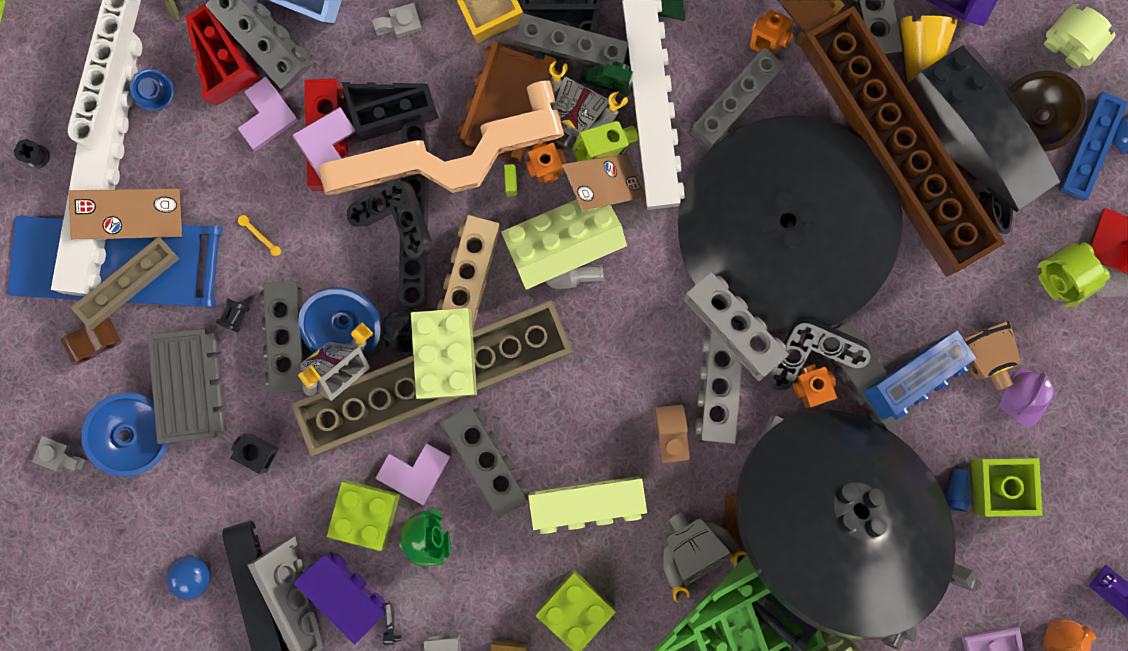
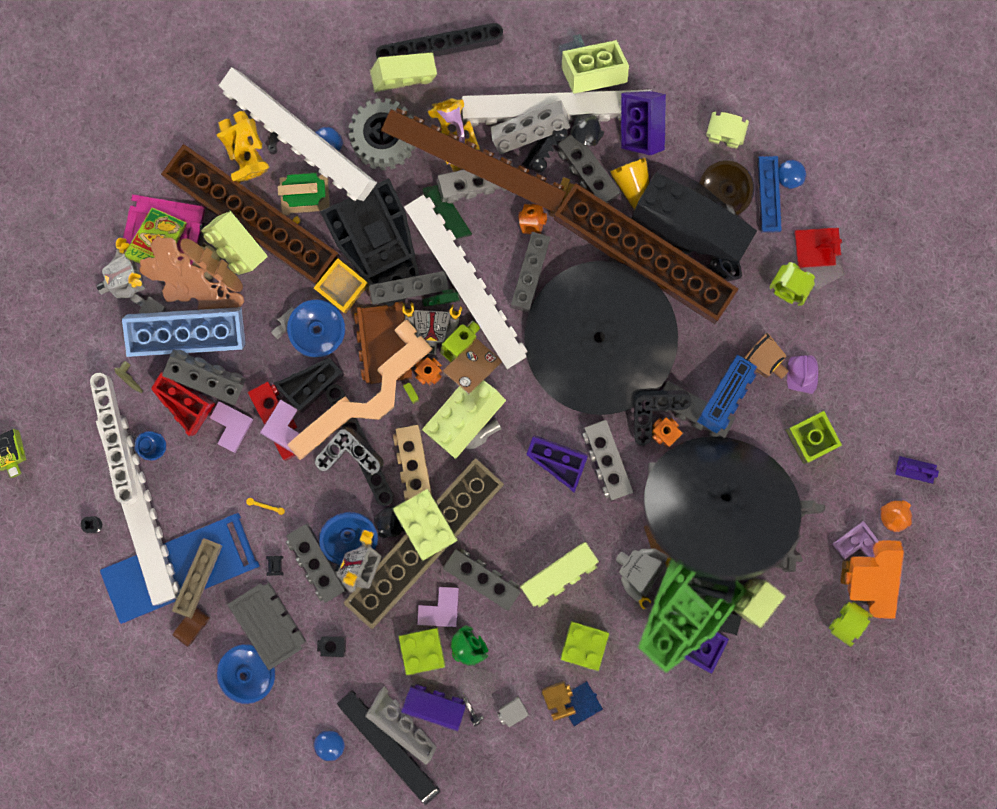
camera: 30 degrees left, 0 degrees up
(55, 455) = (203, 710): light grey plate -> none
(124, 213) = (174, 534): medium nougat sticker -> none
(427, 23) = (313, 314): none -> blue dish
(657, 355) = (558, 460): none -> dark purple wedge
(672, 433) = (591, 505): medium nougat brick -> none
(738, 342) = (623, 435): light grey brick -> none
(958, 491) = (787, 456): blue cone -> none

